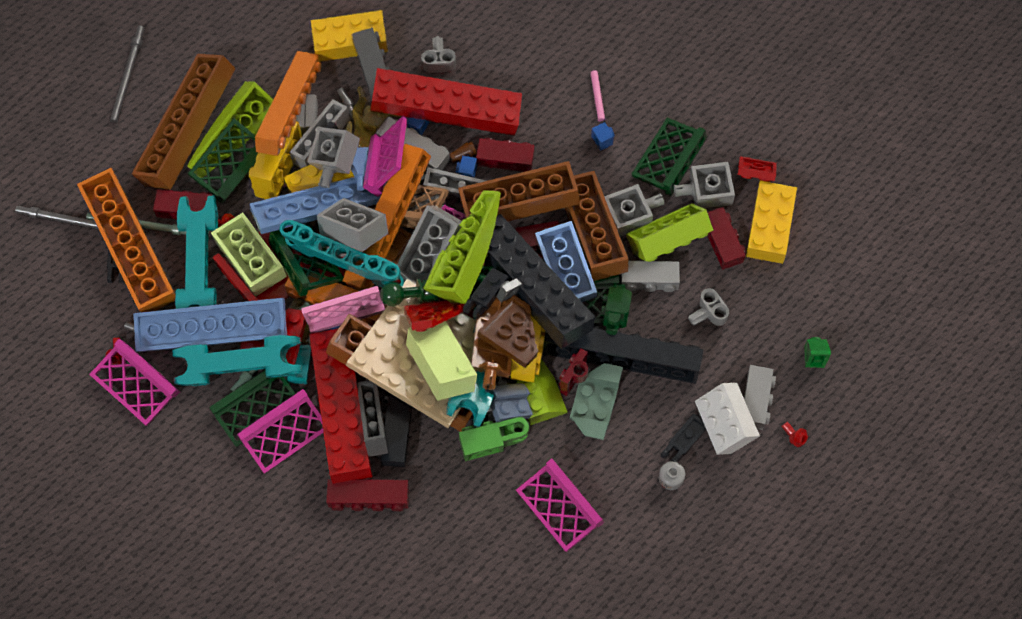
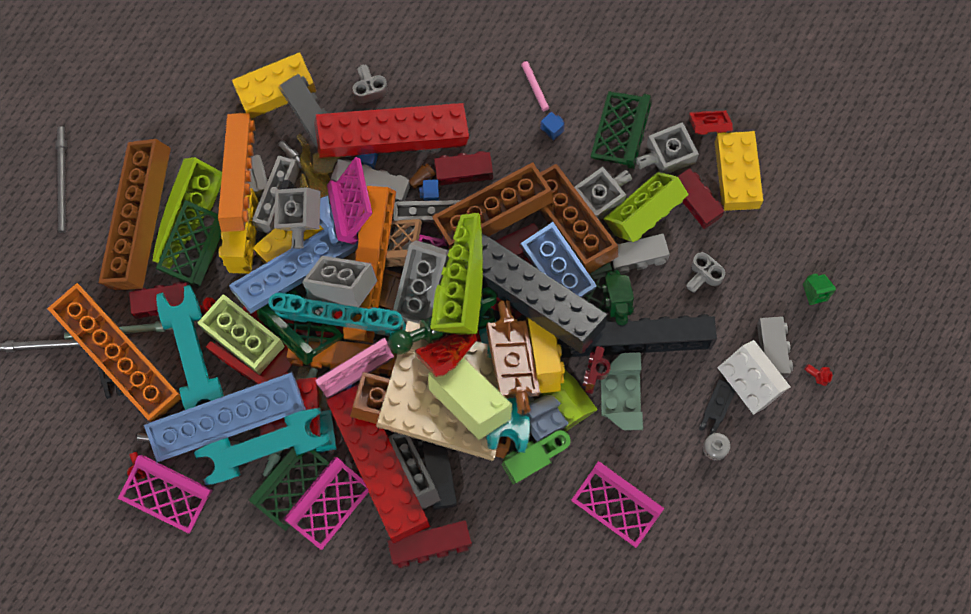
camera: 15 degrees left, 5 degrees up
(485, 293) = (493, 316): black hinge -> none
(508, 289) = (514, 308): dark grey plate -> none
(512, 332) = (530, 350): reddish brown plate -> none

